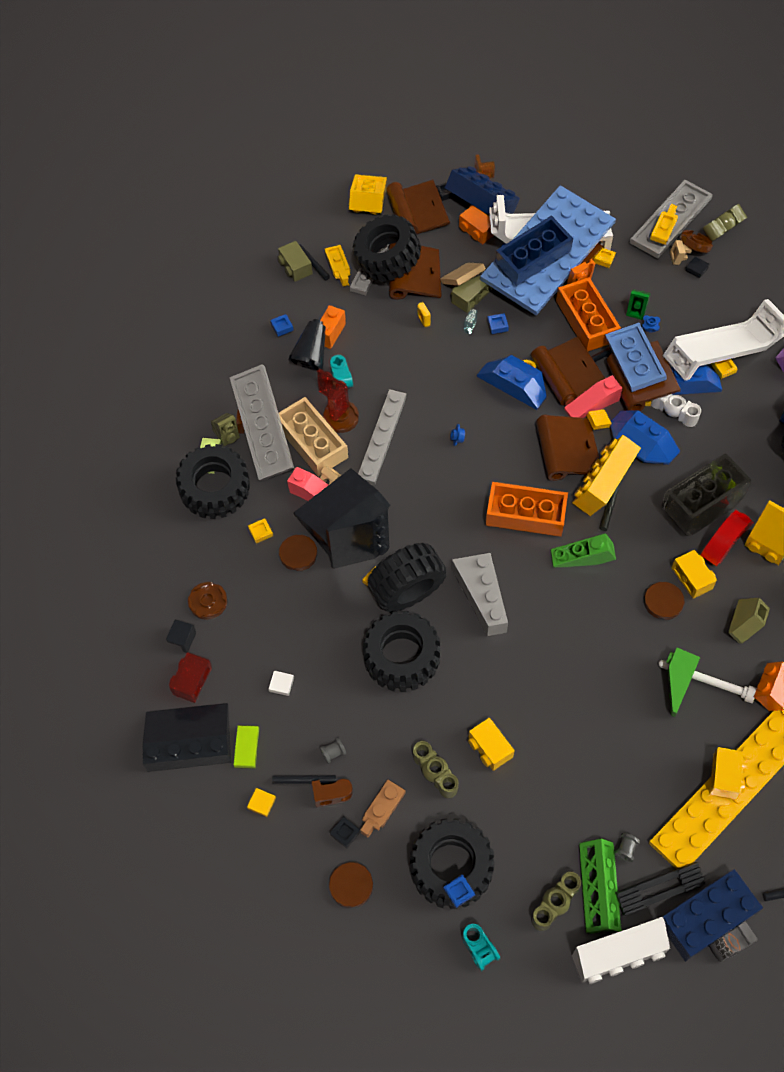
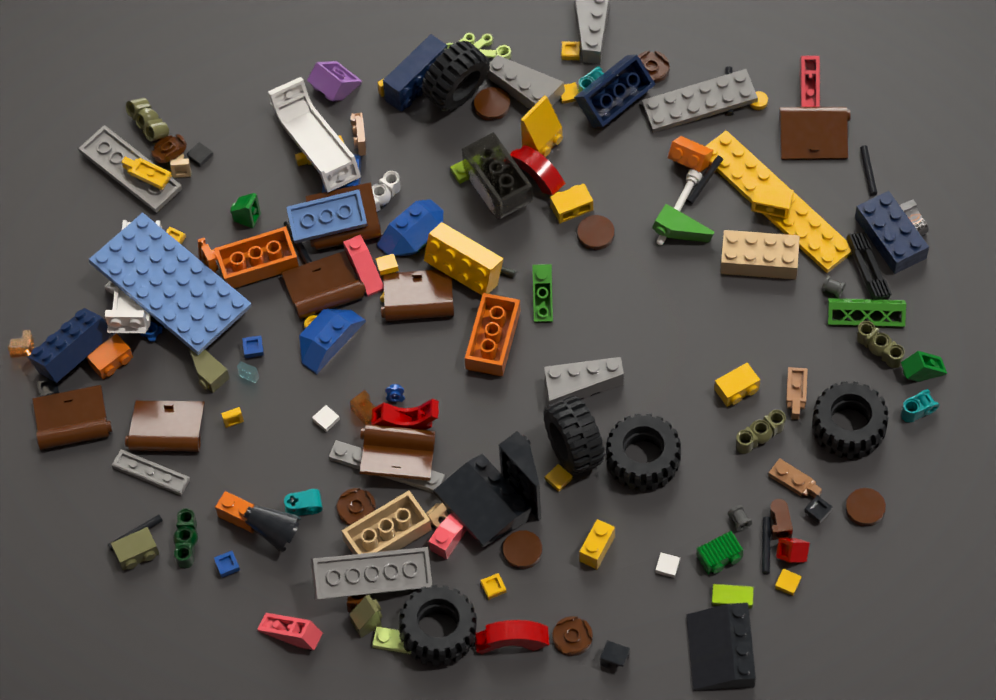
camera: 85 degrees left, 0 degrees up
(190, 677) = (660, 646): clear red brick -> none
(201, 547) = (512, 633): none -> red arch
(215, 375) = (291, 630): none -> coral slope
(292, 731) = (719, 553): none -> green brick
(296, 805) = (792, 549): none -> red panel
(300, 614) = (597, 544): none -> yellow brick
(305, 293) = (185, 546): none -> dark green piece
(335, 391) = (341, 495): clear red bracket -> none
(338, 263) = (144, 503): yellow hinge -> none
(367, 194) = (41, 468): yellow slope -> none
(394, 261) = (134, 419): black tyre -> none
(395, 439) = (397, 452): none -> reddish brown door
(429, 385) = (326, 418): none -> white tile
(430, 441) = (414, 418): none -> red arch
(440, 412) = (362, 407): none -> clear orange panel
(459, 891) = (881, 406): blue tile -> none
(463, 274) = (183, 373): tan tile -> none
(489, 807) = (796, 390): none -> medium nougat hinge
(531, 953) = (923, 366): none -> green slope
(534, 250) = (185, 289): dark blue brick -> none
(621, 950) = (922, 299): white slope -> none
(651, 323) = (270, 209): blue plate -> none
(657, 765) = (760, 254): none -> tan brick
(742, 383) = (358, 130): none -> hinge
(747, 705) = (707, 176): none -> black bar
(748, 618) = (621, 164): olive slope -> none

